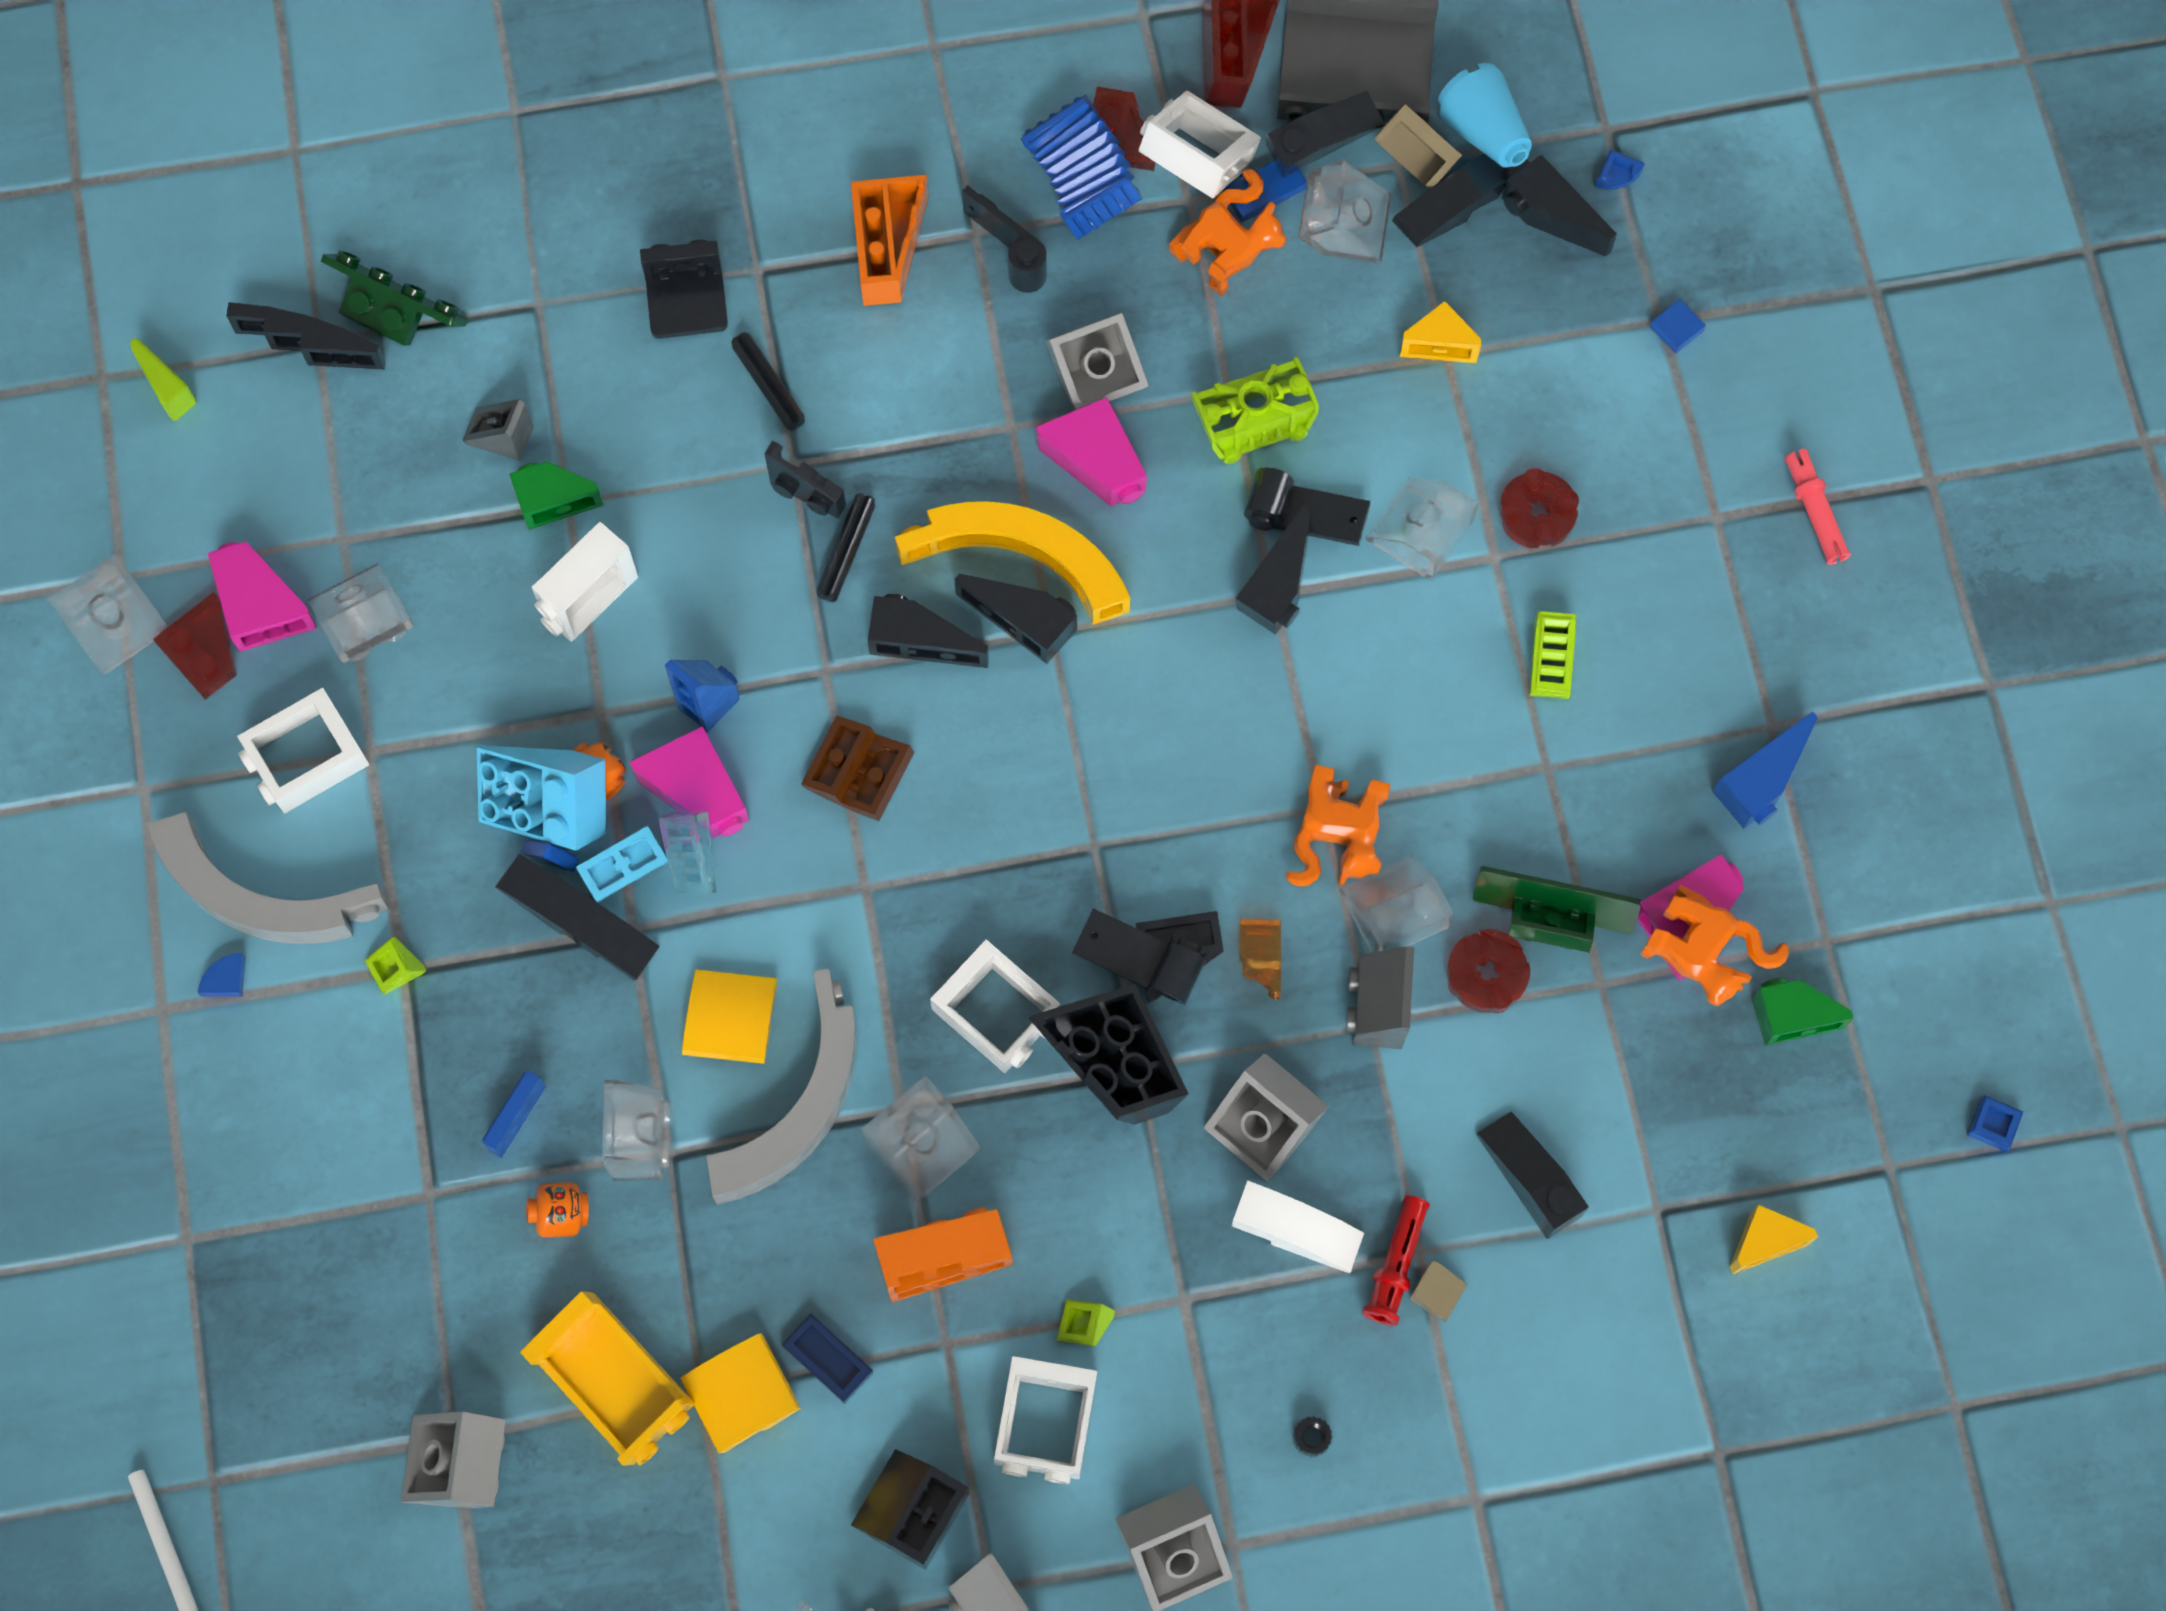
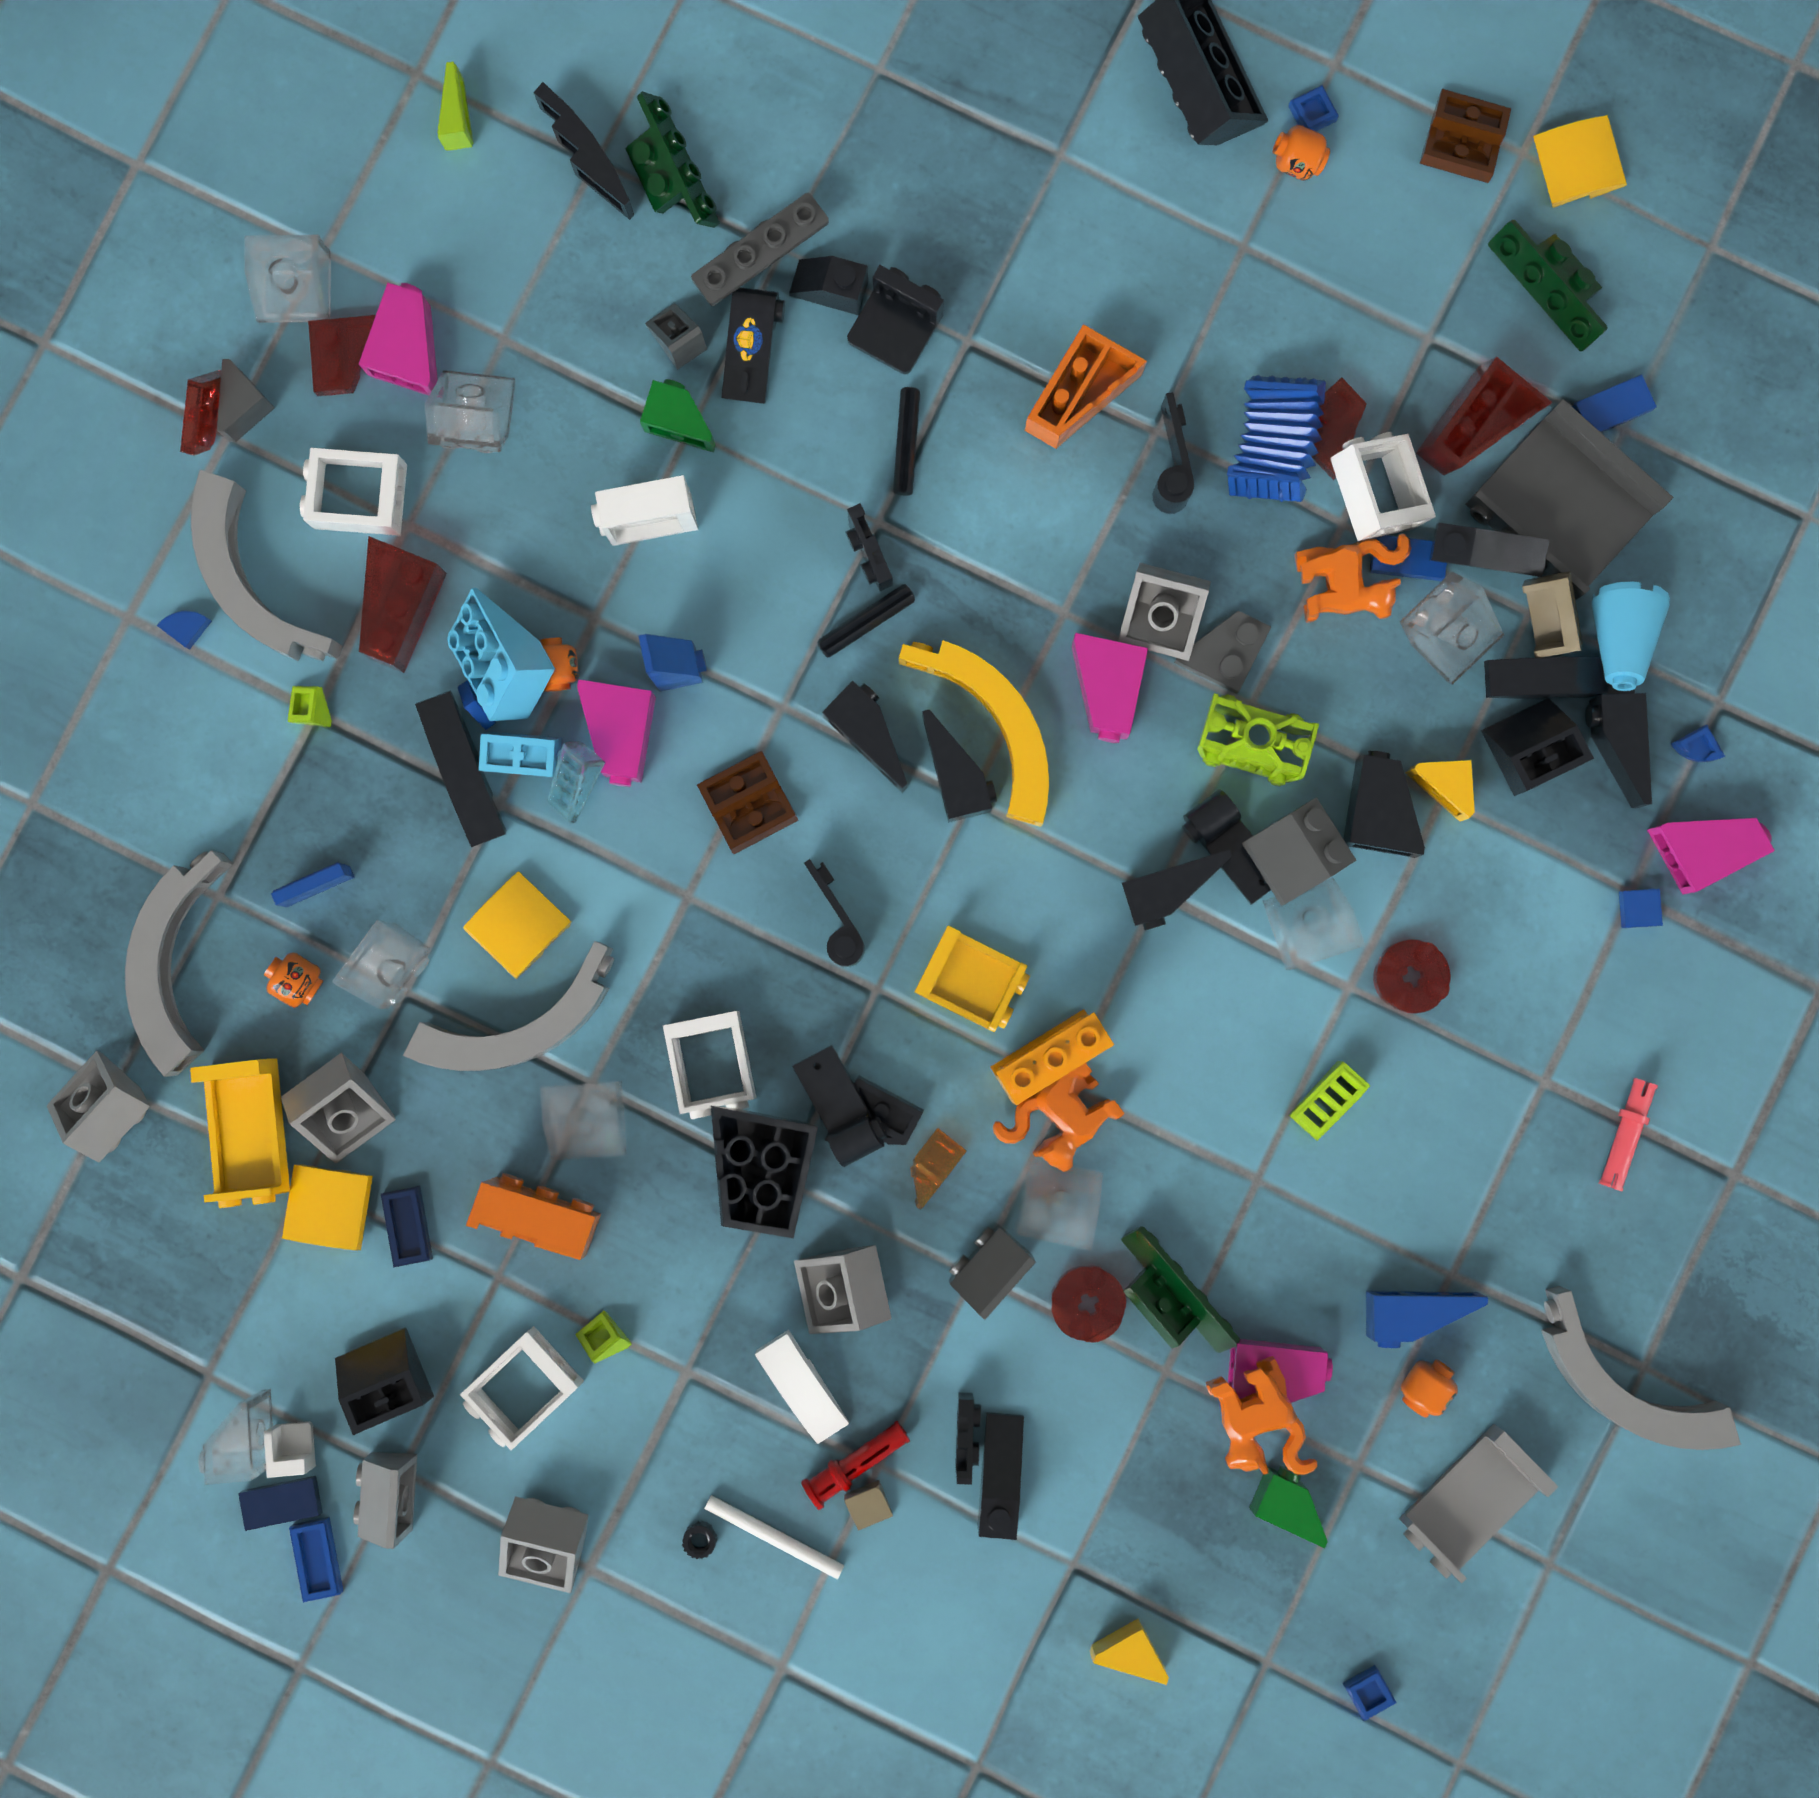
camera: 40 degrees right, 15 degrees up
(108, 767) = (201, 413): none -> clear red wing
(141, 744) = (239, 403): none -> dark grey slope
(388, 1225) = (150, 959): none -> light grey arch
(413, 814) = (396, 602): none -> clear red wedge
(524, 308) = (760, 249): none -> dark grey bracket
(571, 393) = (749, 343): none -> black door
(604, 298) = (831, 283): none -> black slope
(684, 1294) = (337, 1108): none -> light grey slope
(1039, 815) = (844, 945): none -> black door
(1171, 775) = (972, 980): none -> yellow panel
(1174, 362) = (1228, 651): none -> dark grey wing
(1289, 778) = (1051, 1056): none -> light orange window
(1363, 469) = (1299, 851): none -> dark grey slope
(1376, 1384) = (774, 1537): none -> white bar
(1405, 393) = (1382, 809): none -> black slope
(1474, 1160) = (966, 1450): none -> black wing
(1489, 257) = (1536, 746): none -> black slope
(1690, 240) = (1709, 850): none -> dark pink slope
(1829, 826) = (1429, 1388): none -> orange head
(1945, 892) = (1474, 1501): none -> light grey panel
(1984, 725) = (1683, 1427): none -> light grey arch

